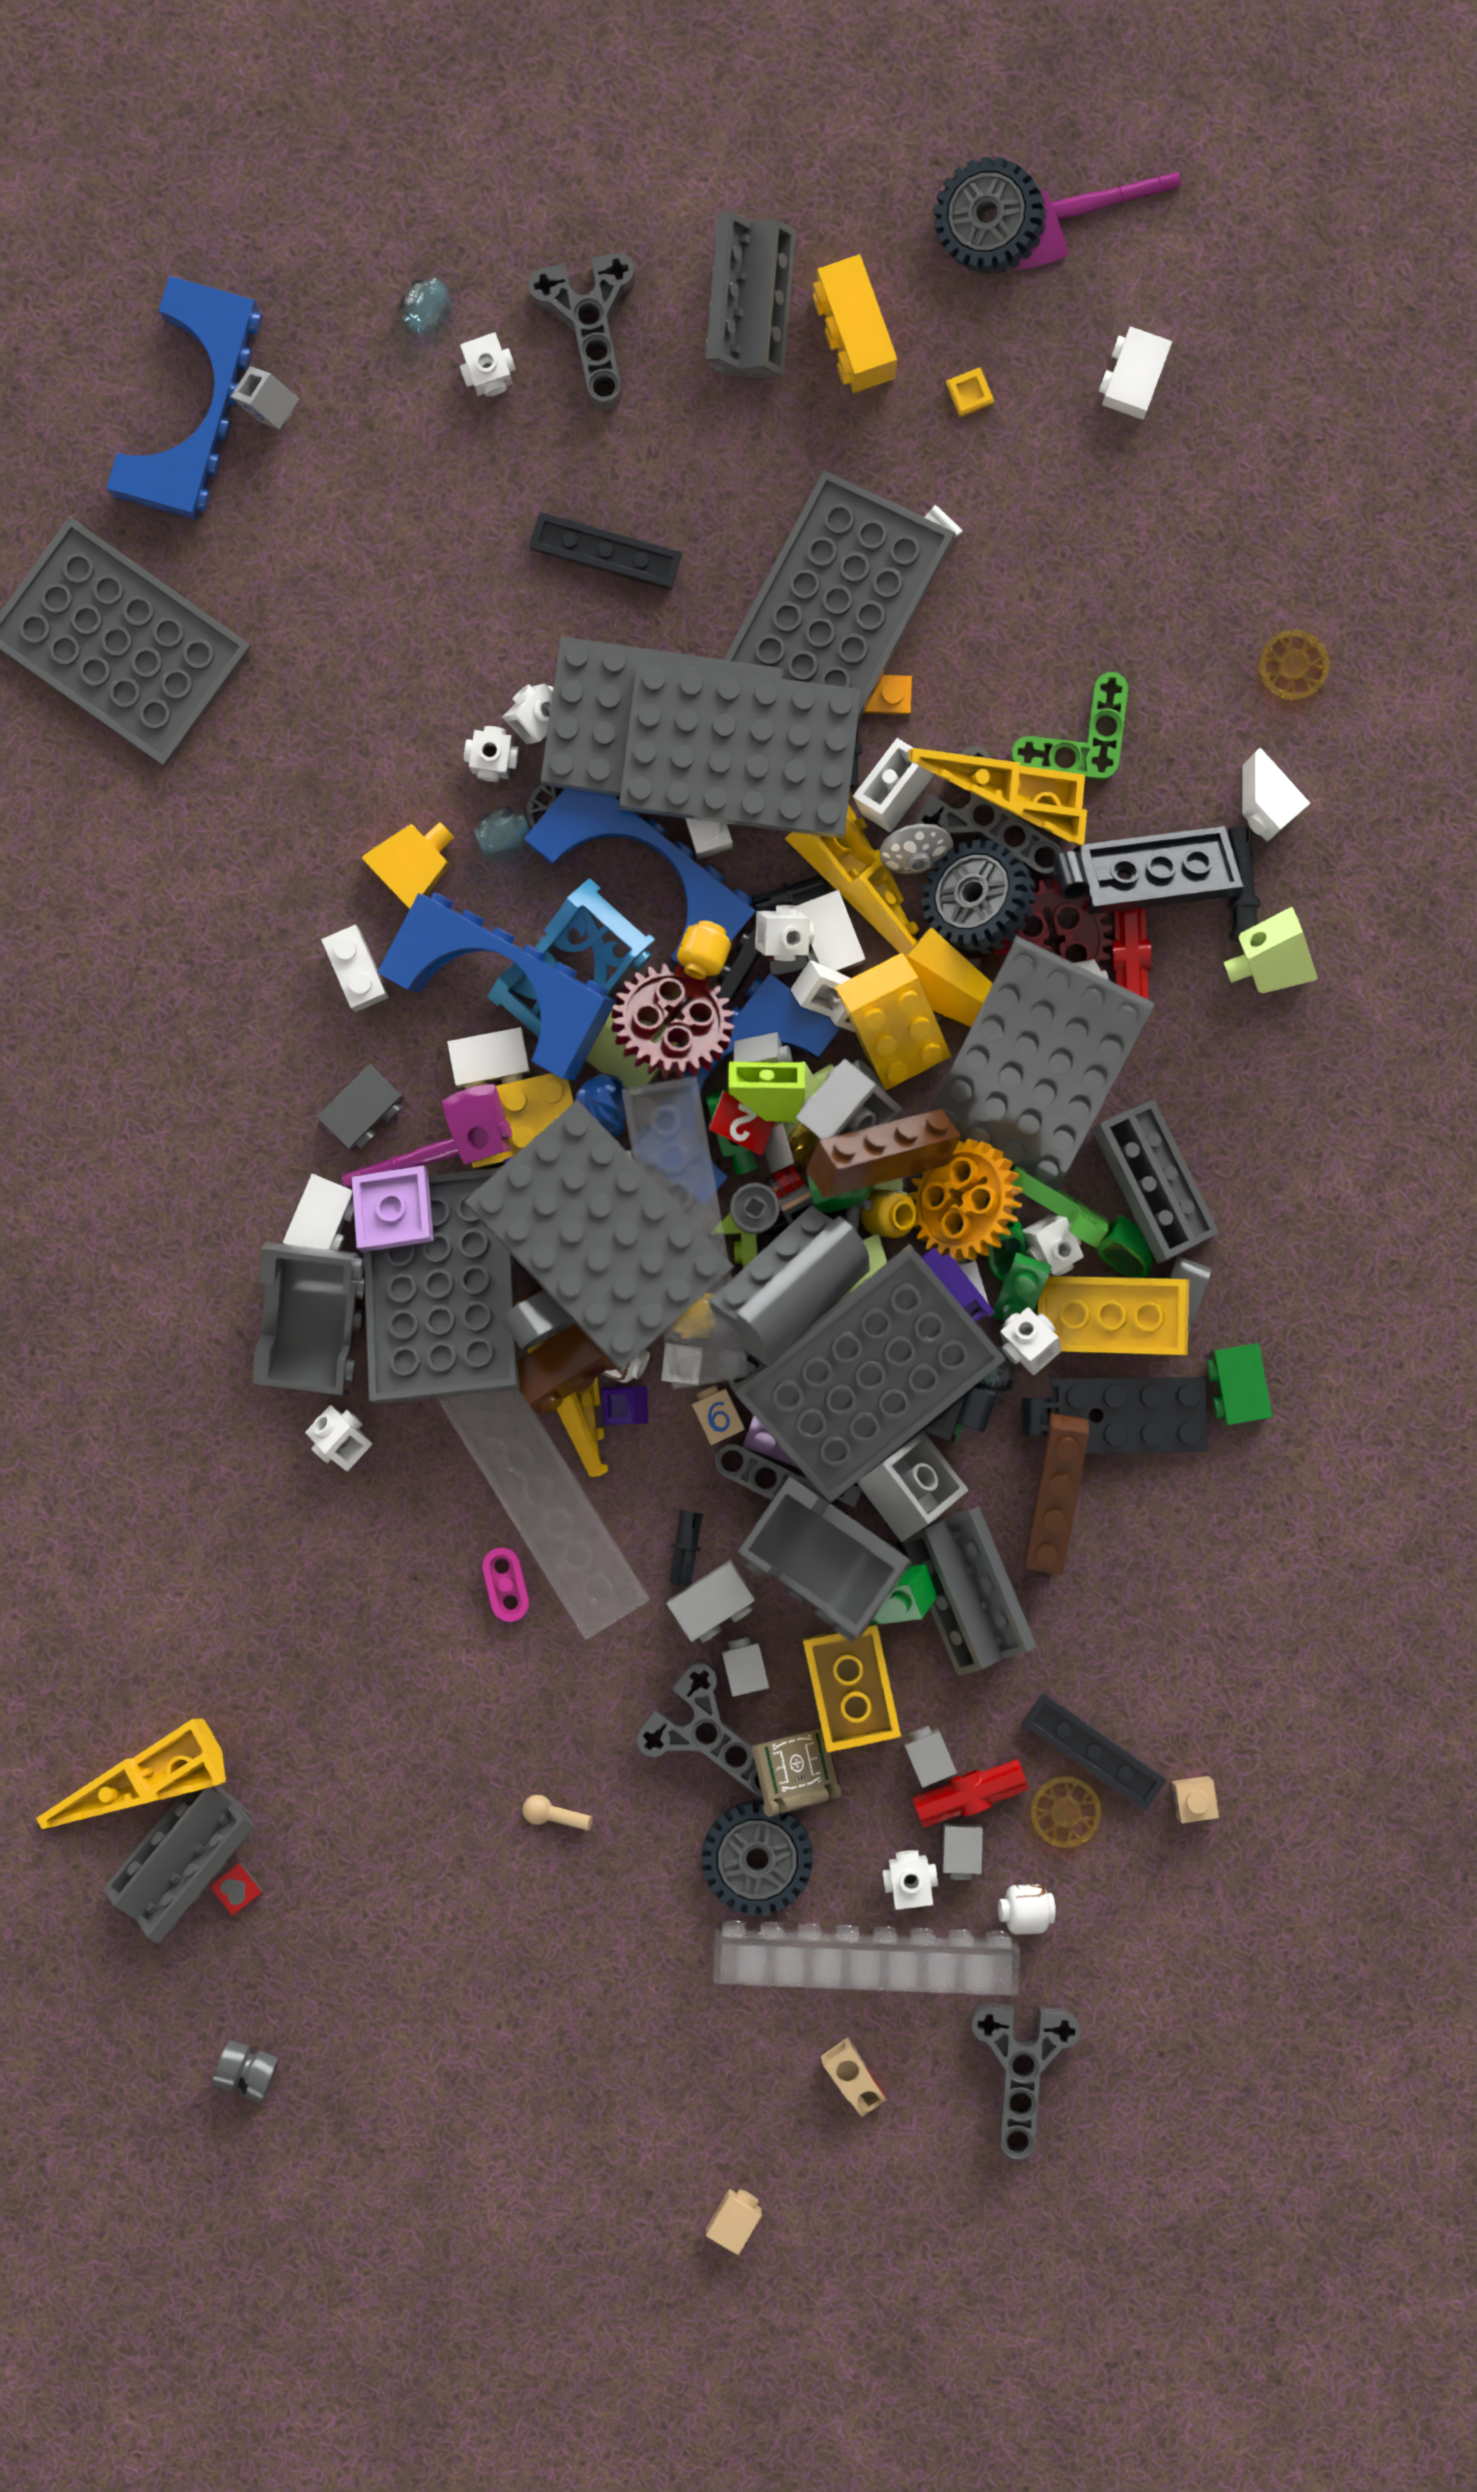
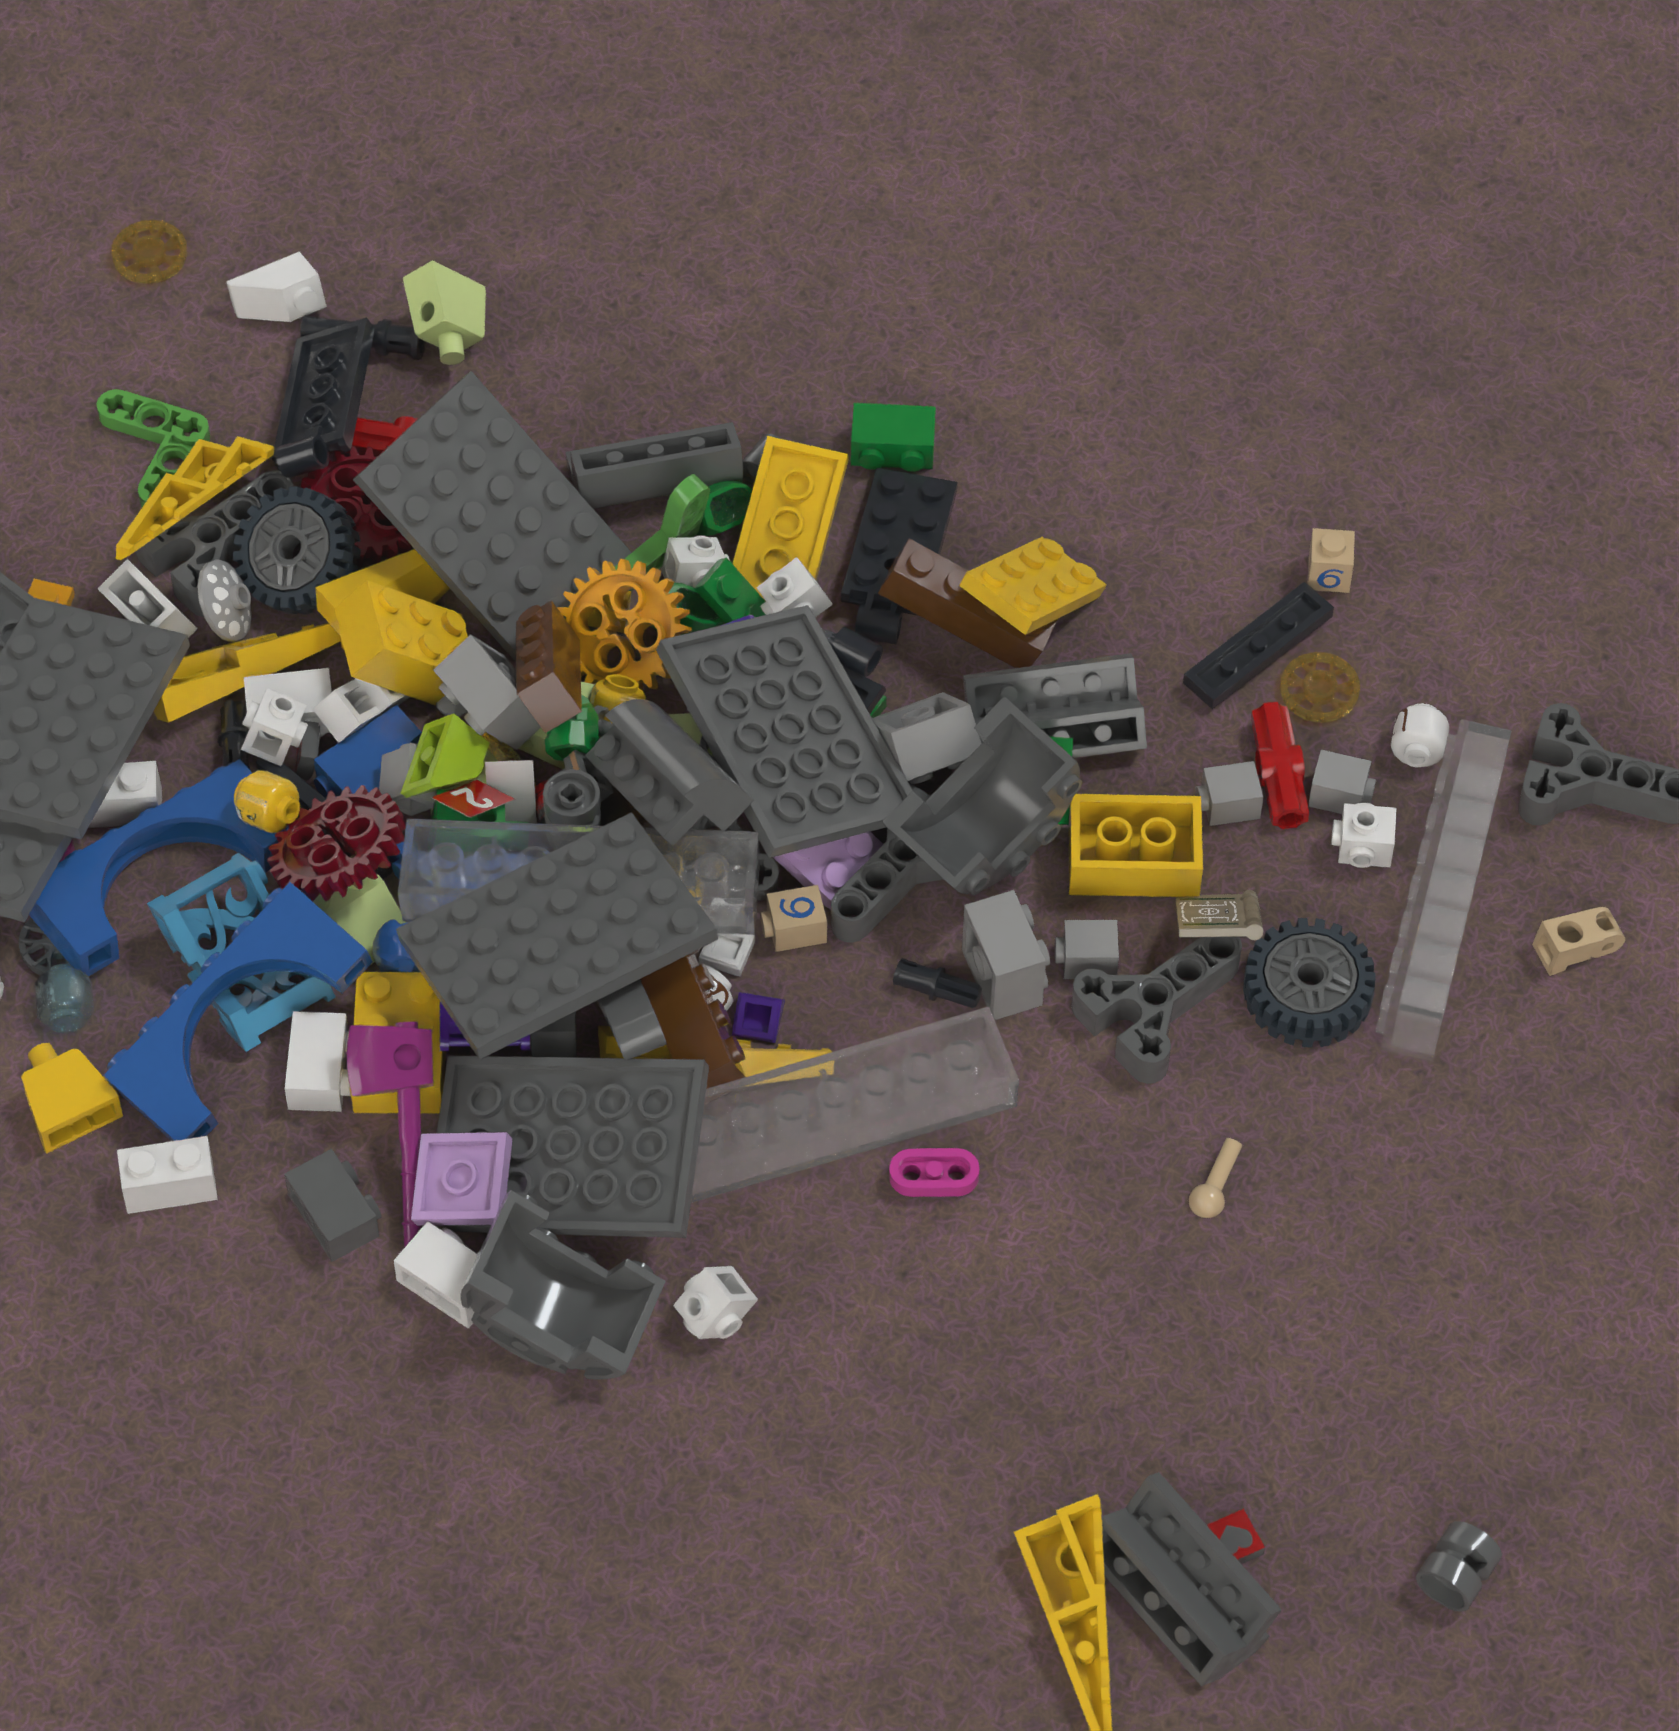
camera: 85 degrees left, 30 degrees down
(1087, 1547) = (1033, 584): none -> yellow plate

